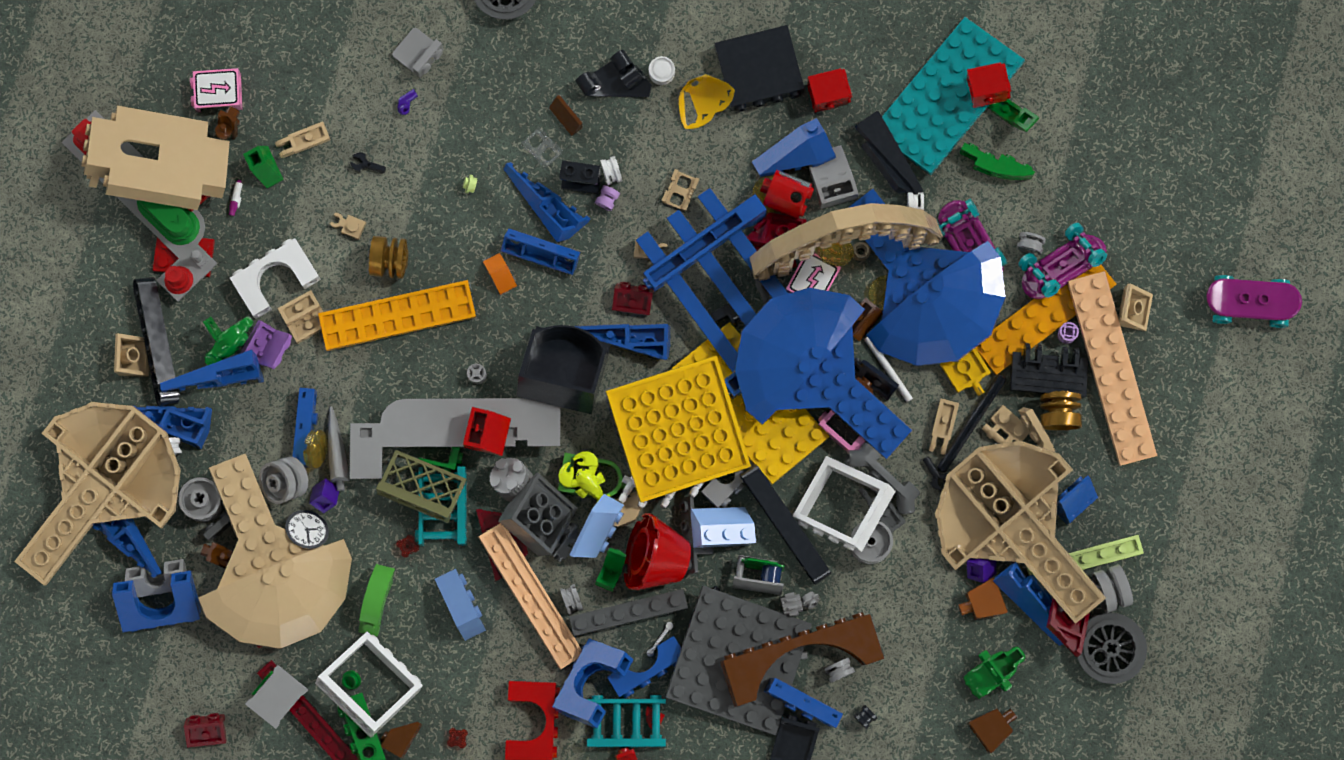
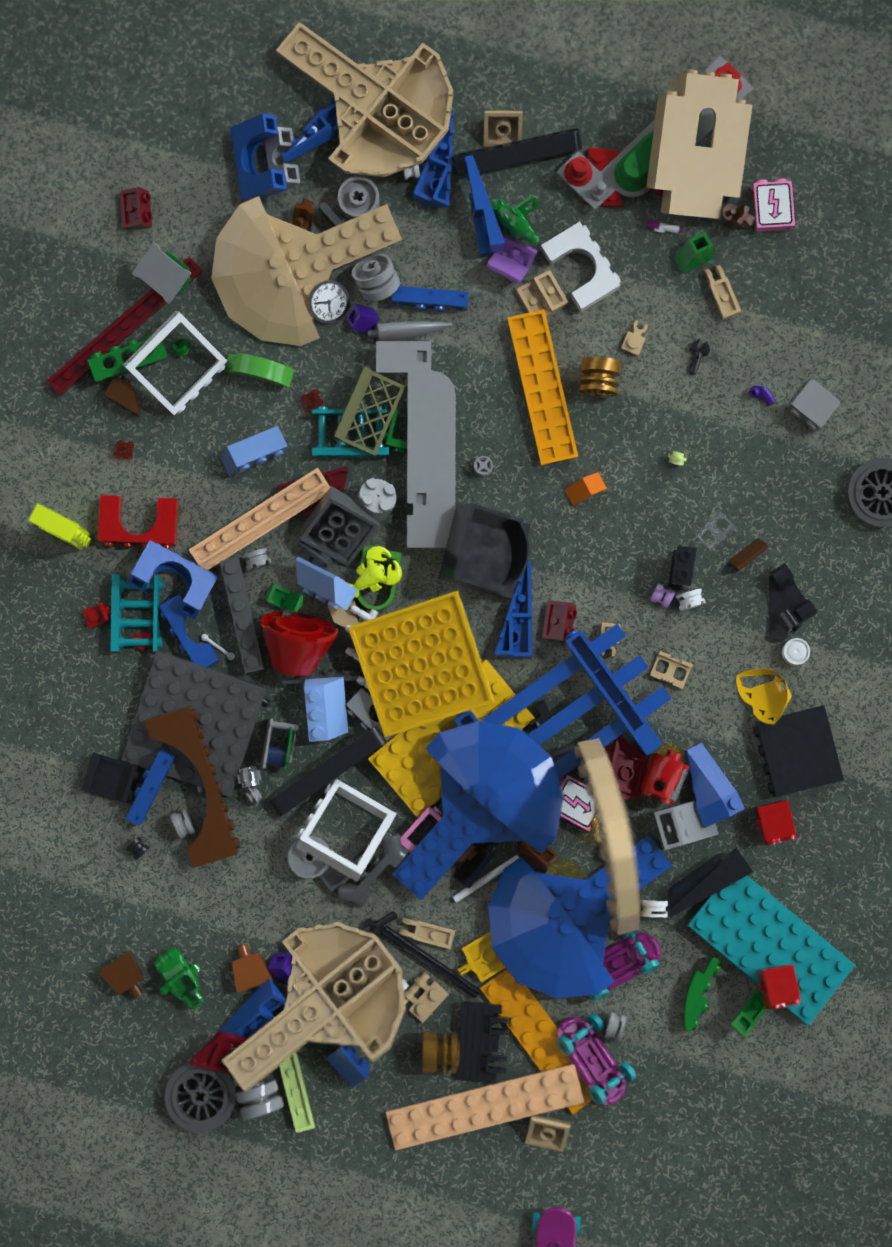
camera: 90 degrees right, 5 degrees up
(316, 448) = (407, 309): clear yellow tile -> none
(486, 431) = (419, 474): red slope -> none
(540, 251) = (610, 521): blue piece -> none
(555, 215) = (645, 543): blue wedge -> none
(1037, 431) = (418, 1028): tan hinge -> none
(1064, 333) = (521, 1062): lavender wheel -> none

